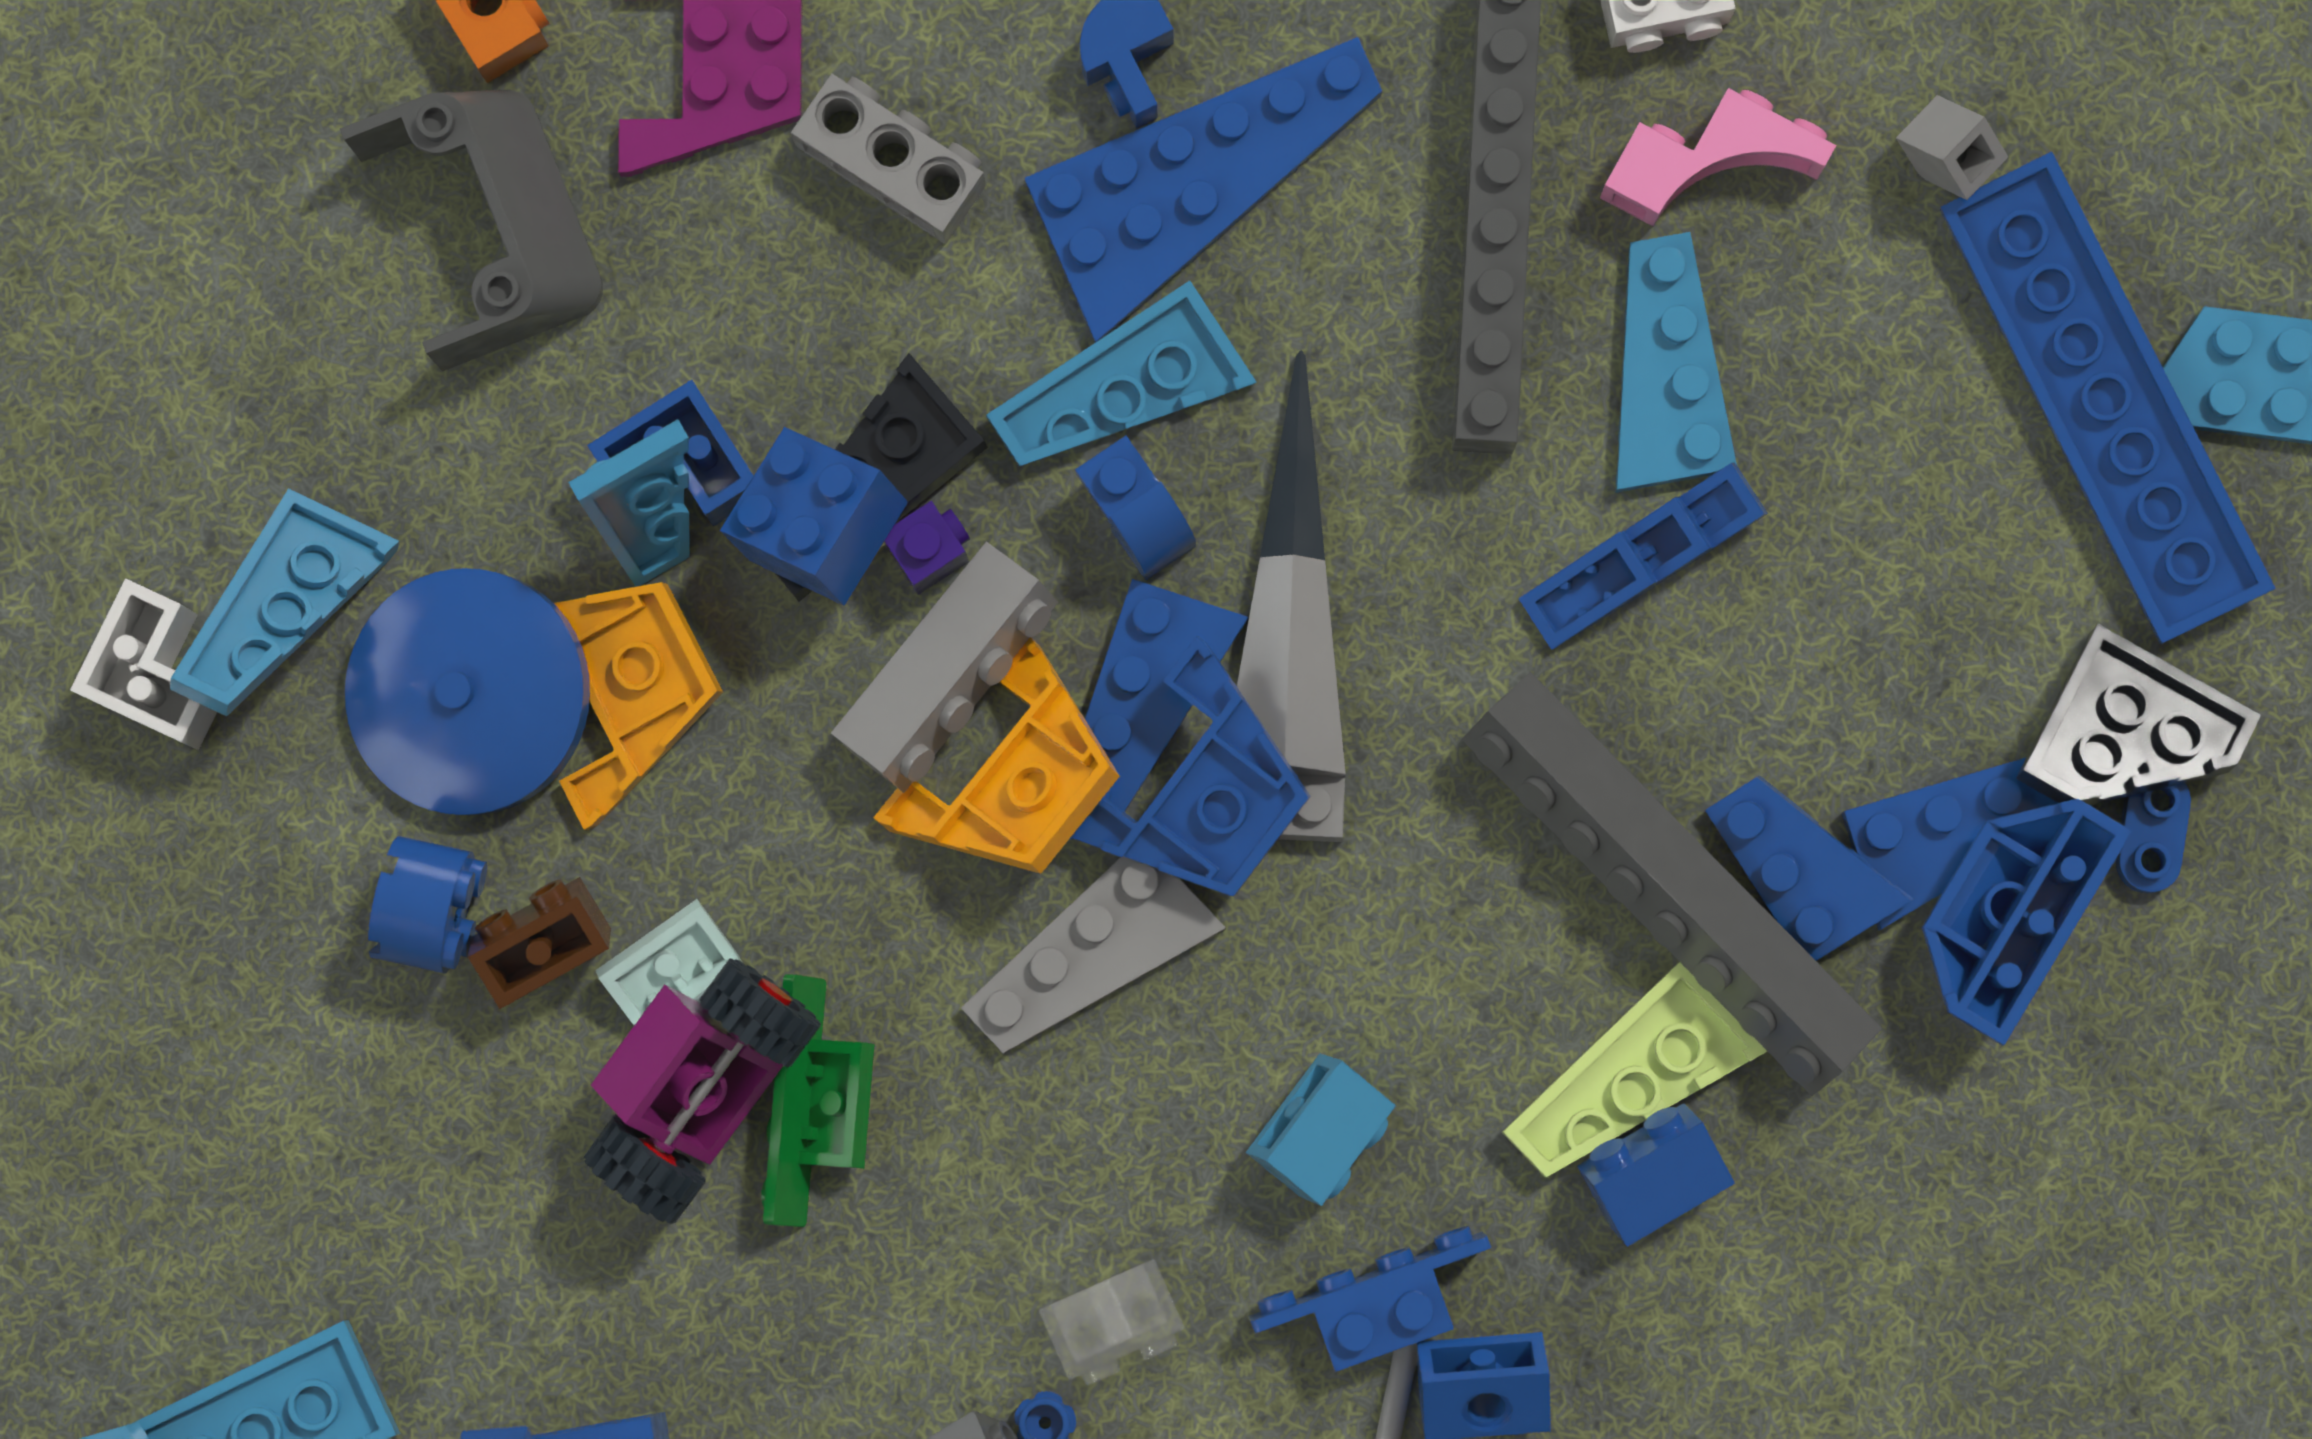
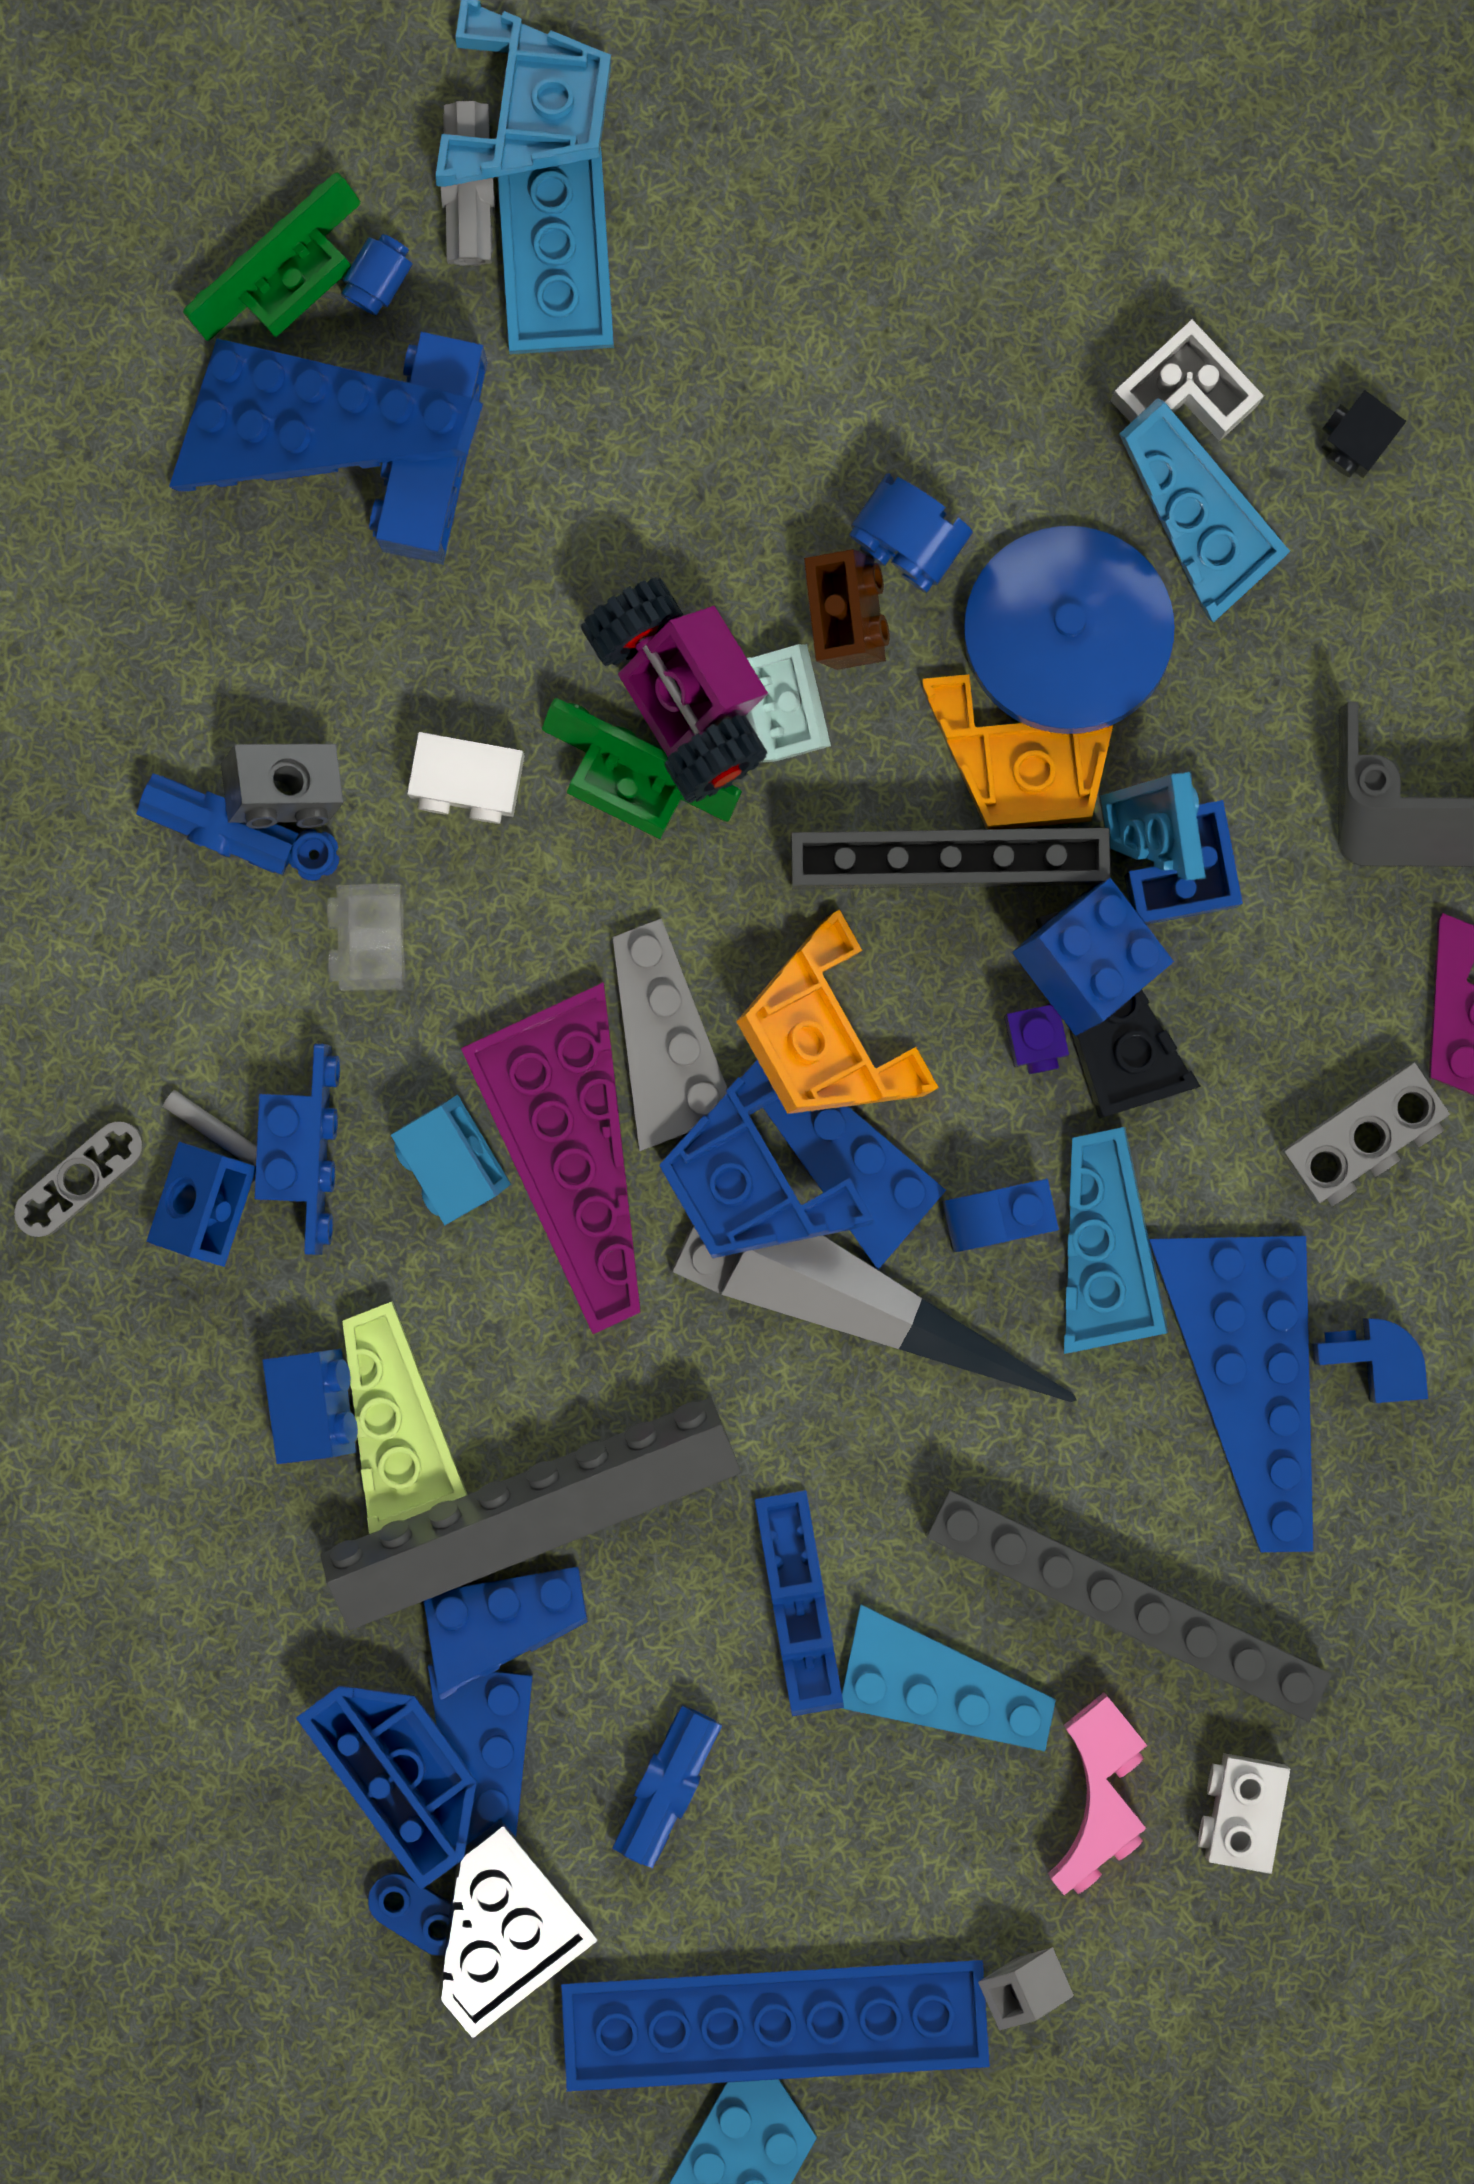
camera: 105 degrees right, 5 degrees up
(131, 463) = (1360, 434): none -> black brick
(769, 717) = (950, 858): none -> dark grey brick
(890, 1287) = (466, 777): none -> white brick
(945, 667) = (933, 1013): light grey brick -> none
(1228, 1028) = (560, 1121): none -> magenta wing
(1900, 615) = (667, 1786): none -> blue piece

